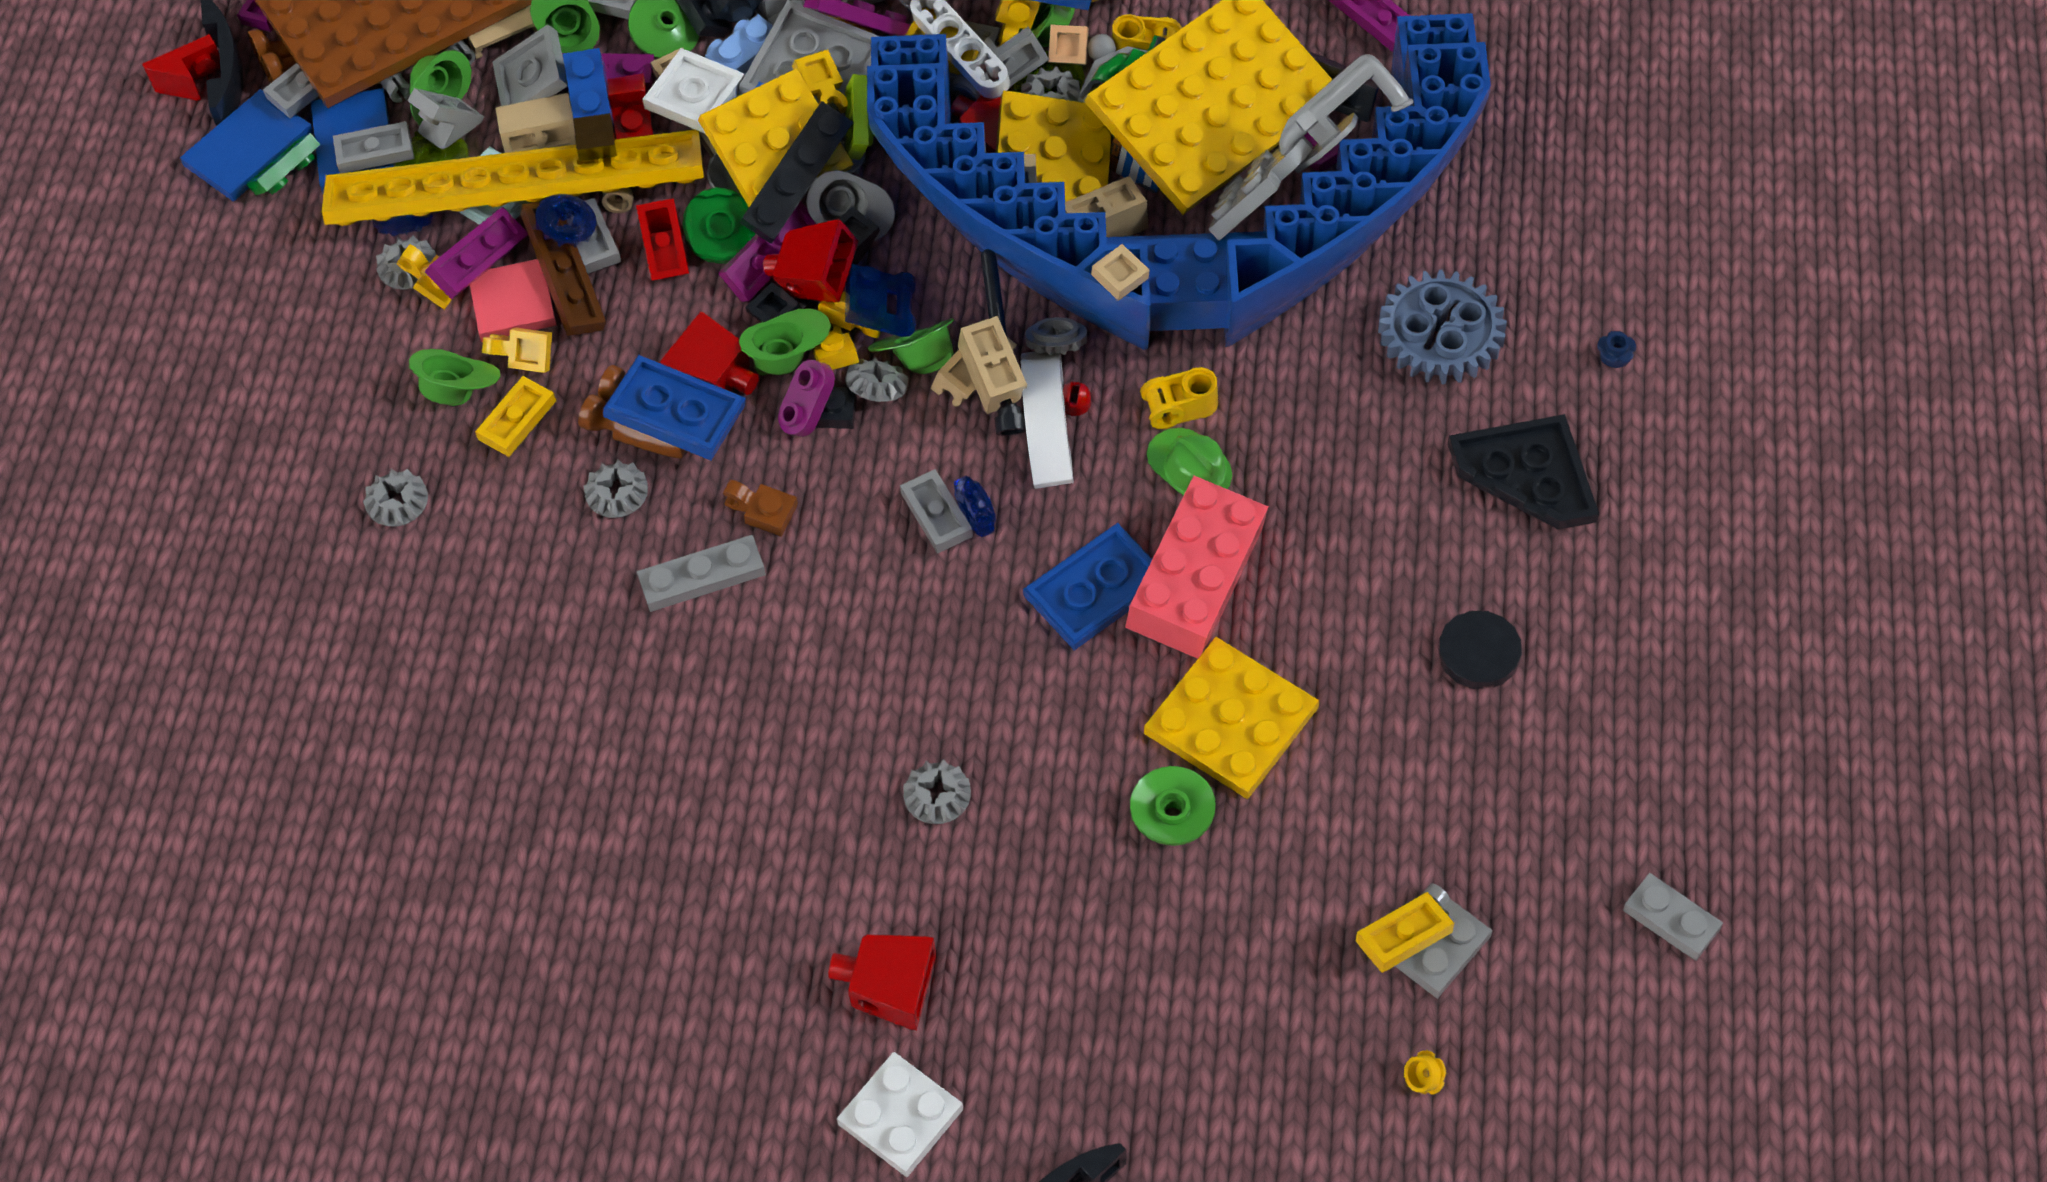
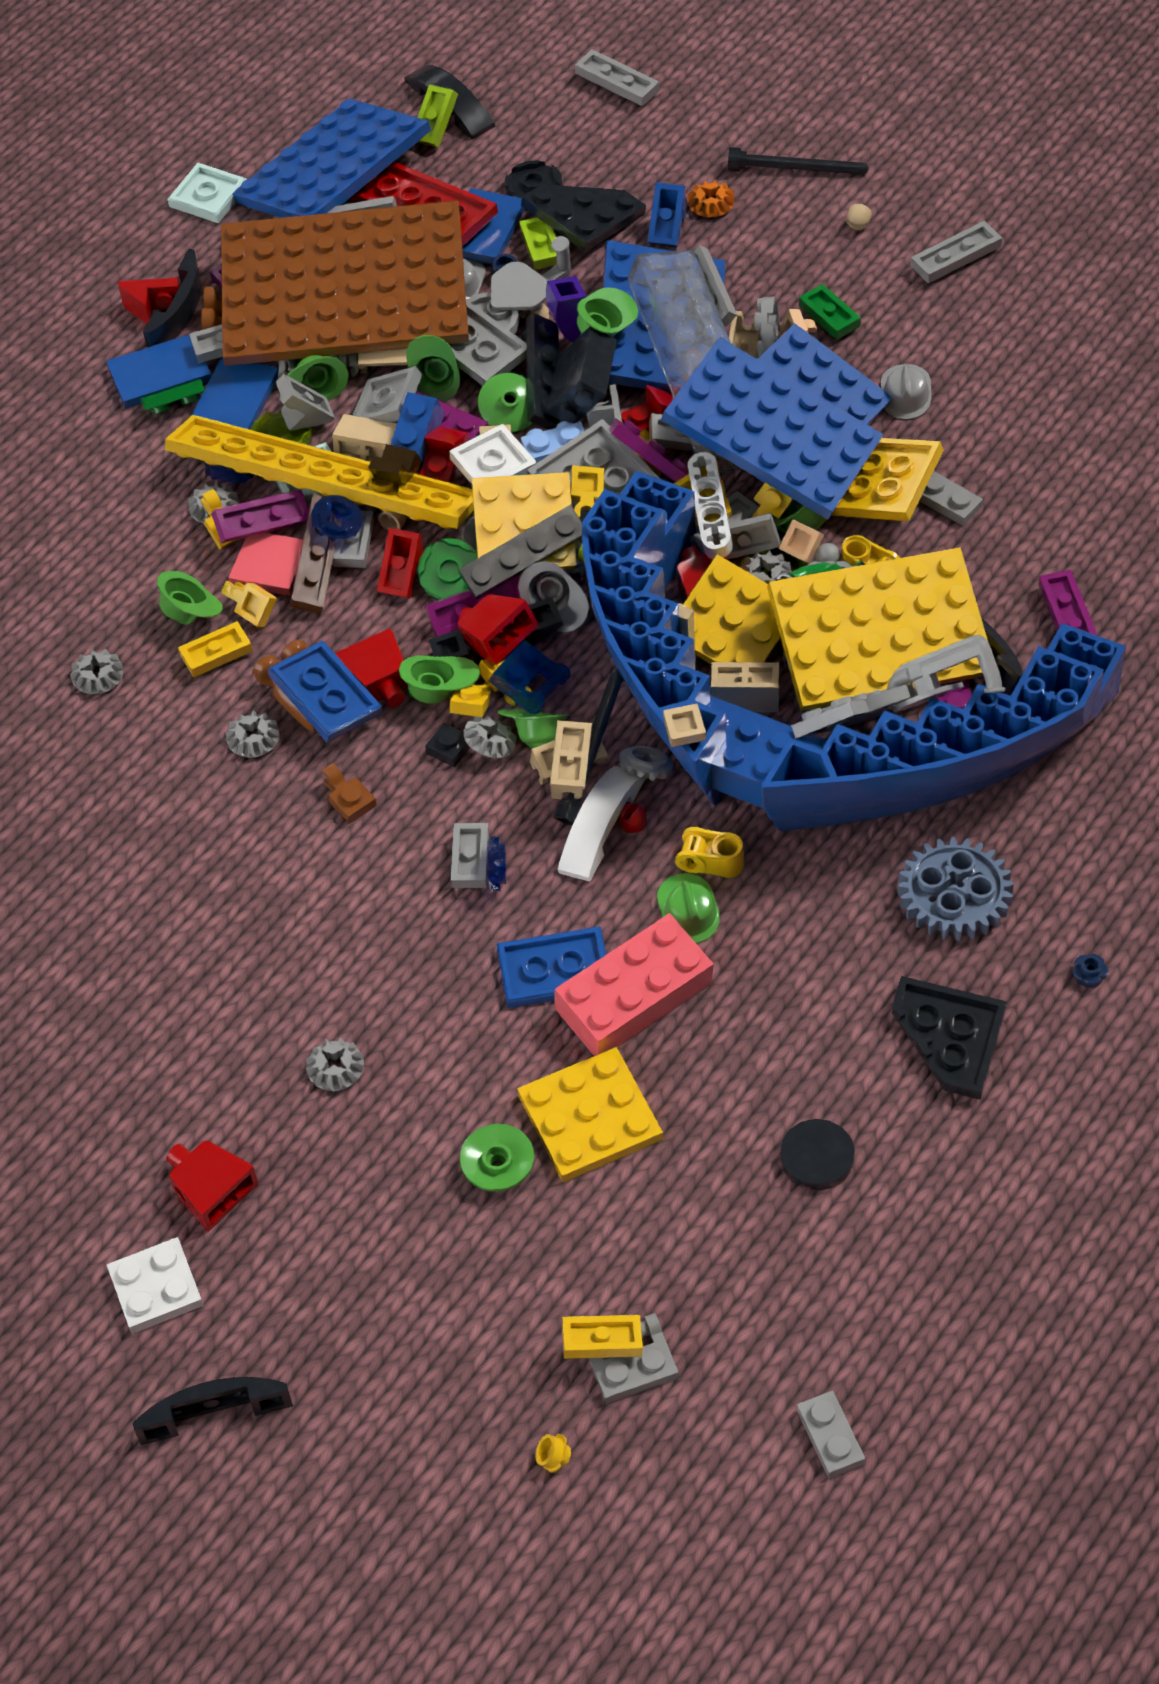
camera: 30 degrees right, 5 degrees down
(373, 147) = (239, 408): light grey plate -> none
(701, 573) = (272, 824): light grey plate -> none
(806, 400) = (426, 727): magenta plate -> none

